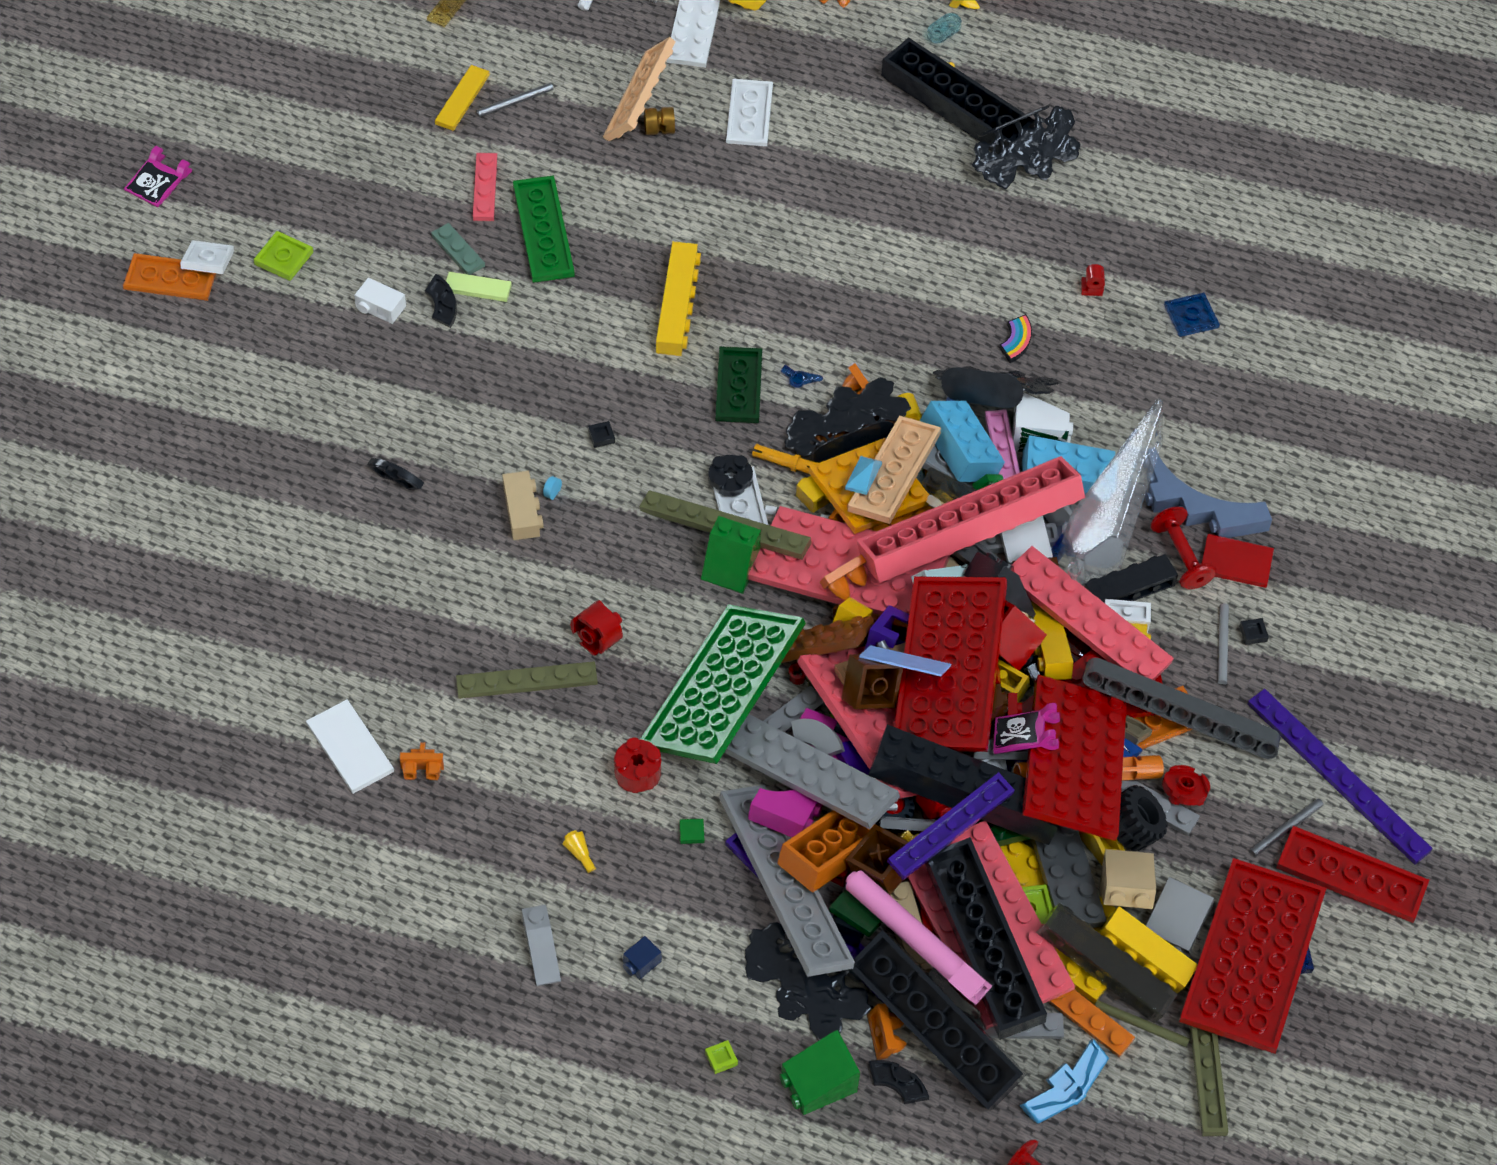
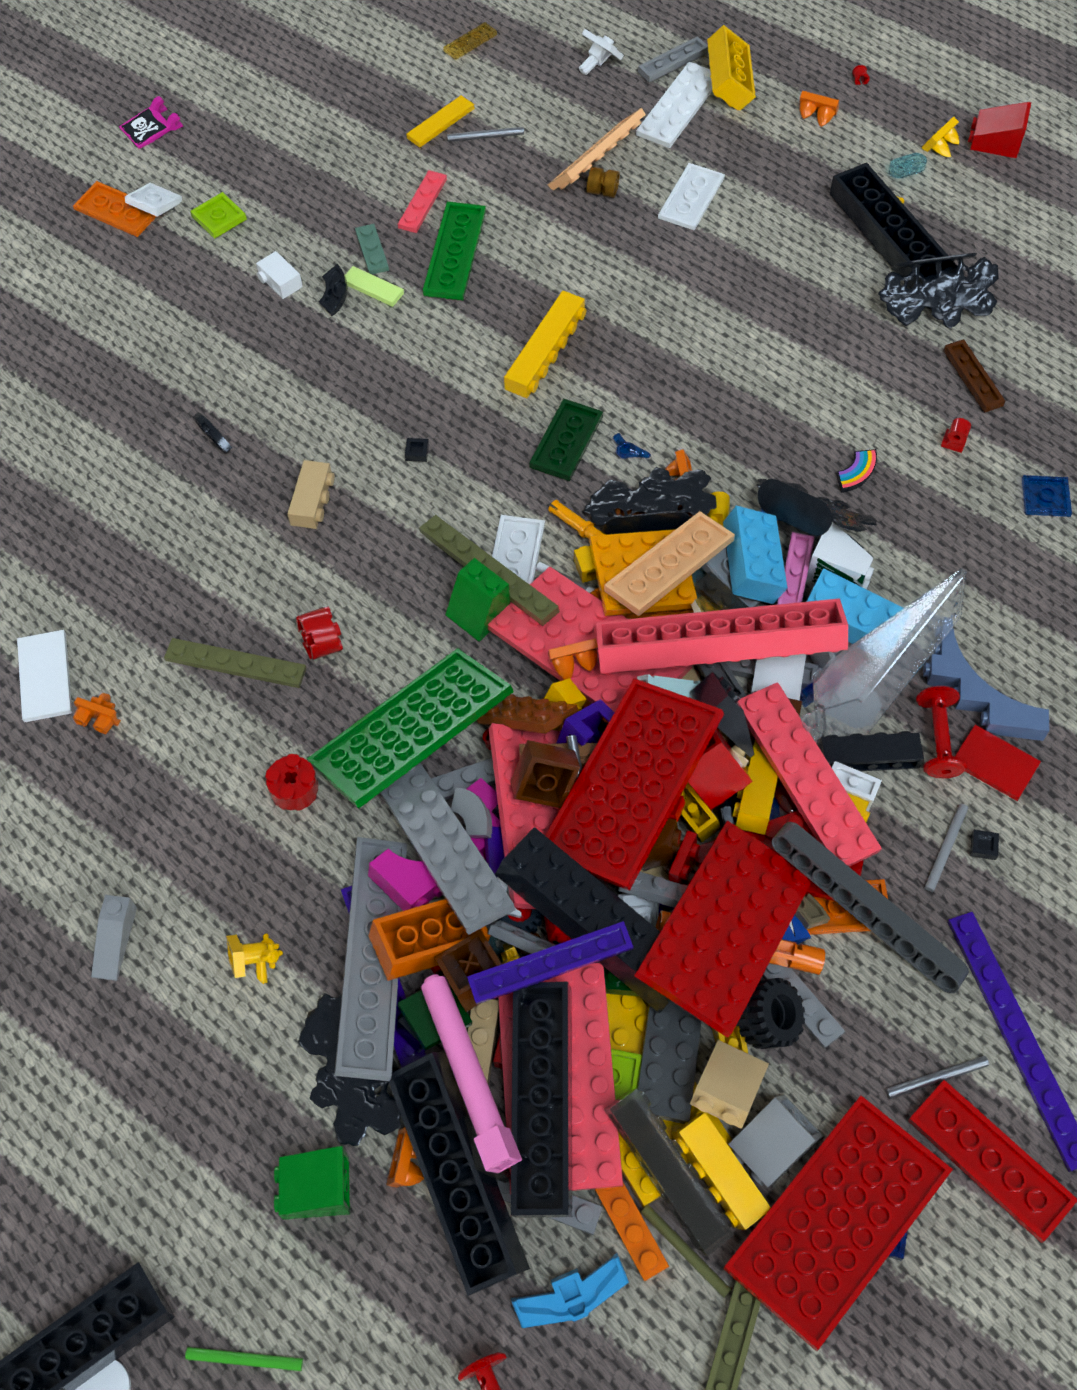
camera: 25 degrees right, 5 degrees up
(552, 487) = (347, 485): medium azure tile -> none
(577, 845) = (198, 845): yellow cone -> none
(641, 958) = (200, 986): dark blue brick -> none
(675, 919) = (252, 953): none -> yellow piece
(691, 831) = (316, 867): green tile -> none
(721, 1057) = (228, 1123): lime plate -> none
(730, 463) = (517, 511): black plate -> none
(863, 475) = (634, 559): medium azure slope -> none
(899, 1079) = (398, 1217): black tile -> none
(905, 660) = (583, 765): light blue piece -> none
(987, 480) = (763, 600): green tile -> none
(1026, 730) = (682, 879): flag -> none
(1086, 220) = (974, 375): none -> reddish brown plate
(1191, 794) = (832, 1002): red plate -> none

